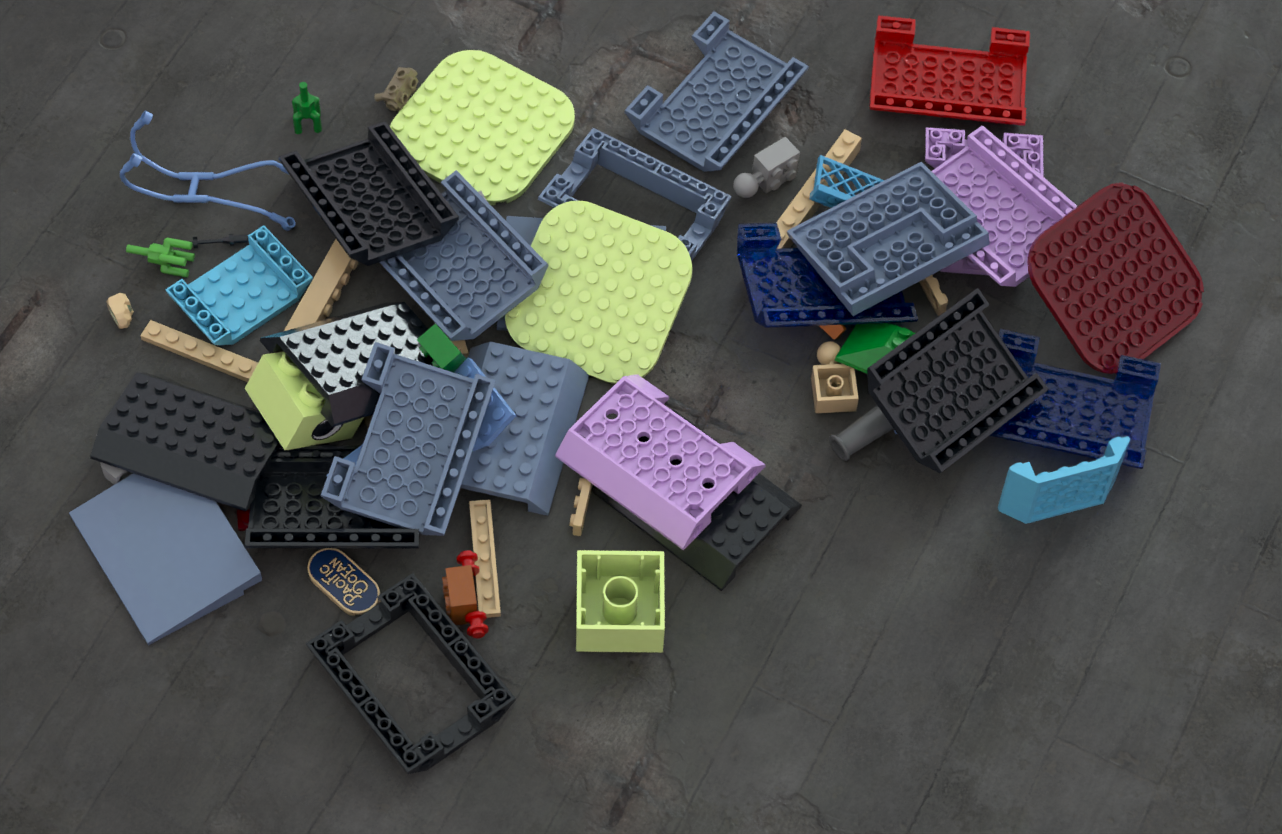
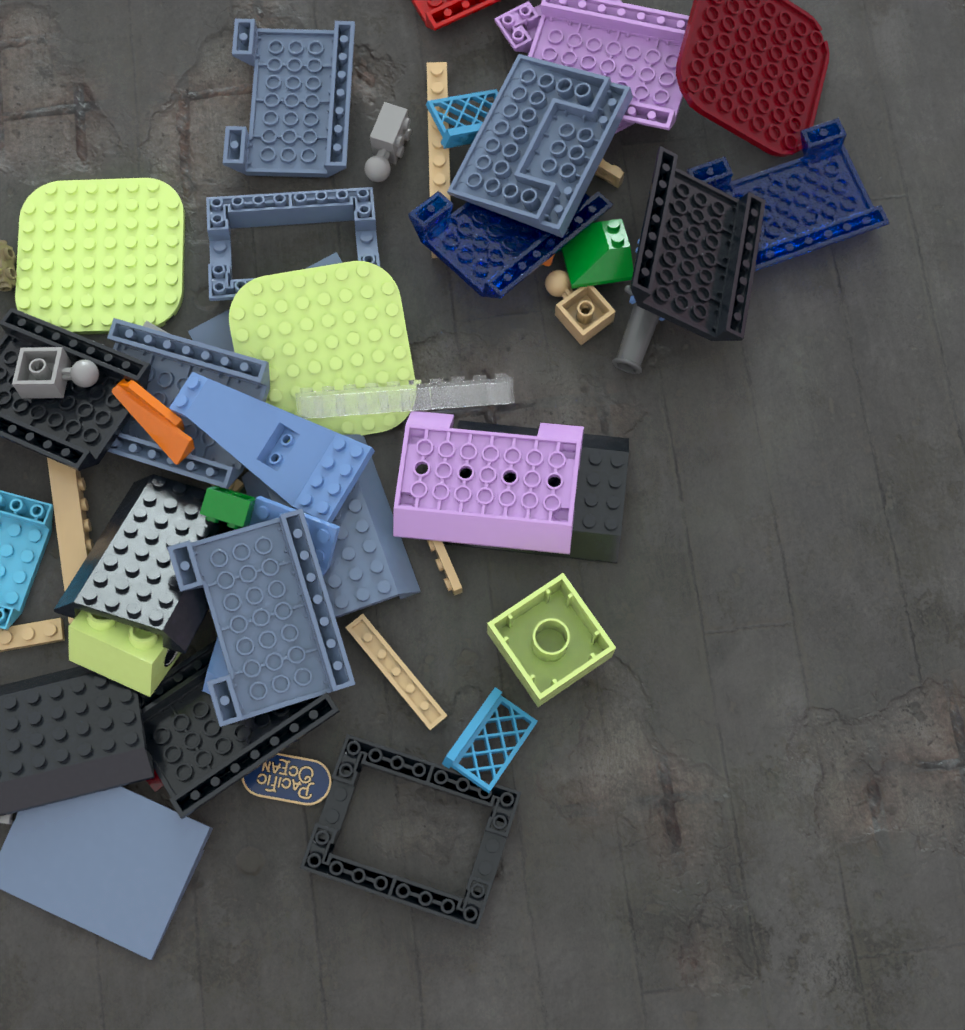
camera: 30 degrees left, 15 degrees up
(377, 178) = (45, 372): none -> light grey brick
(434, 260) = (156, 419): none -> orange wedge
(461, 596) = (404, 724): dark orange brick -> none
(511, 333) = (312, 469): none -> medium blue wing
(511, 631) = (471, 734): none -> dark azure fence
(640, 361) = (404, 397): none -> clear brick
(1061, 491) = (821, 305): medium azure slope -> none

